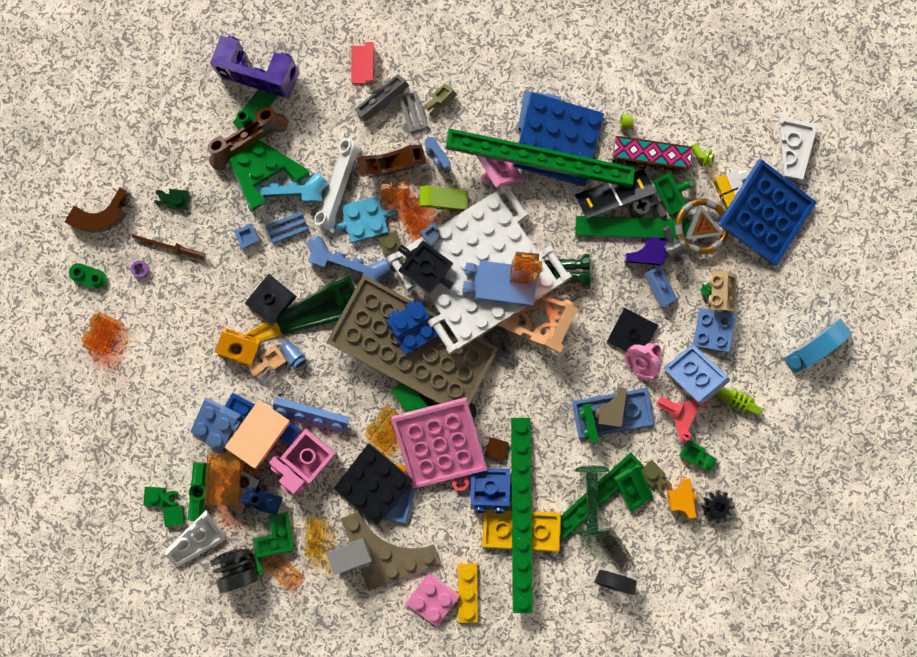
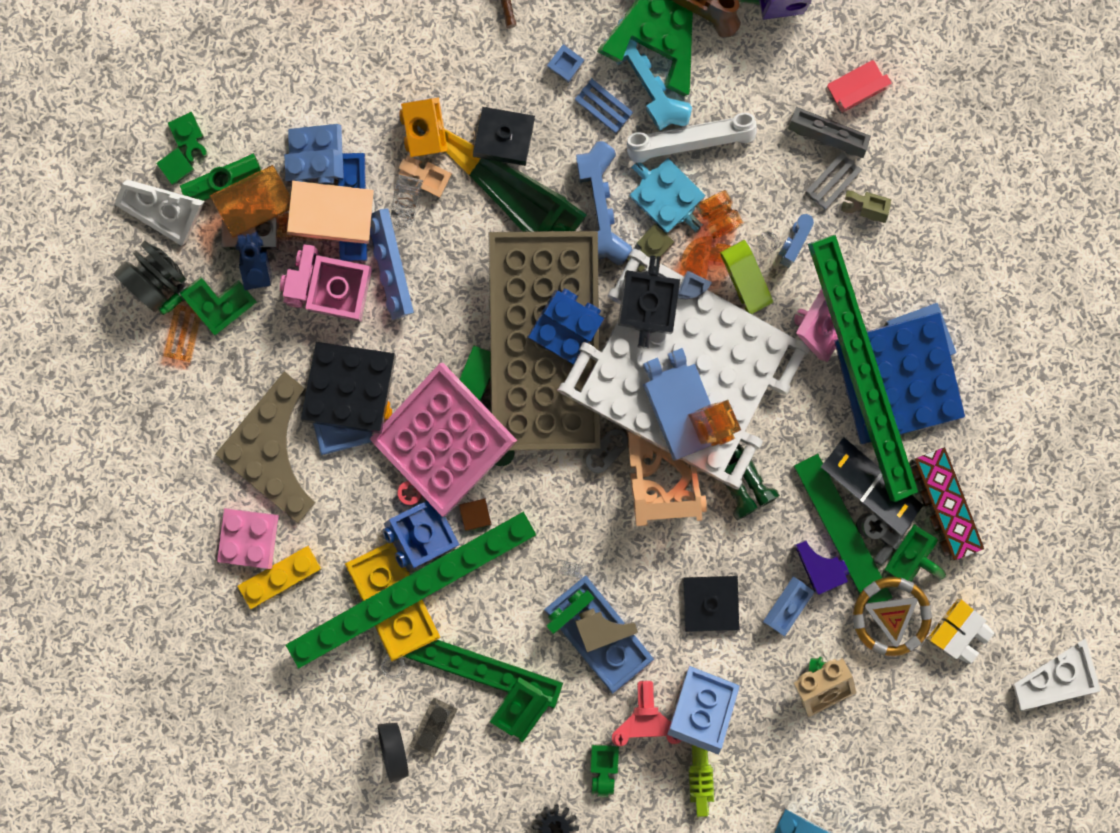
camera: 60 degrees right, 0 degrees up
(293, 355) = (451, 202): medium blue cone -> none
(315, 537) = (244, 353): clear yellow hinge -> none
(348, 556) = (243, 405): light grey brick -> none
(381, 430) = (419, 361): clear yellow bracket -> none
(391, 162) = (755, 189): reddish brown arch -> none
(592, 500) = (476, 667): clear green hose -> none
(626, 121) = (970, 451): lime hinge -> none
(644, 360) = (685, 635): bright pink tile -> none
(654, 474) = (550, 726): olive plate -> none
(674, 247) = (846, 595): dark grey piece -> none
(683, 498) = (541, 778): light orange brick -> none
(706, 157) = (982, 576): lime plate -> none
(714, 330) = (772, 703): medium blue hinge -> none
(767, 212) = (954, 687): blue plate -> none

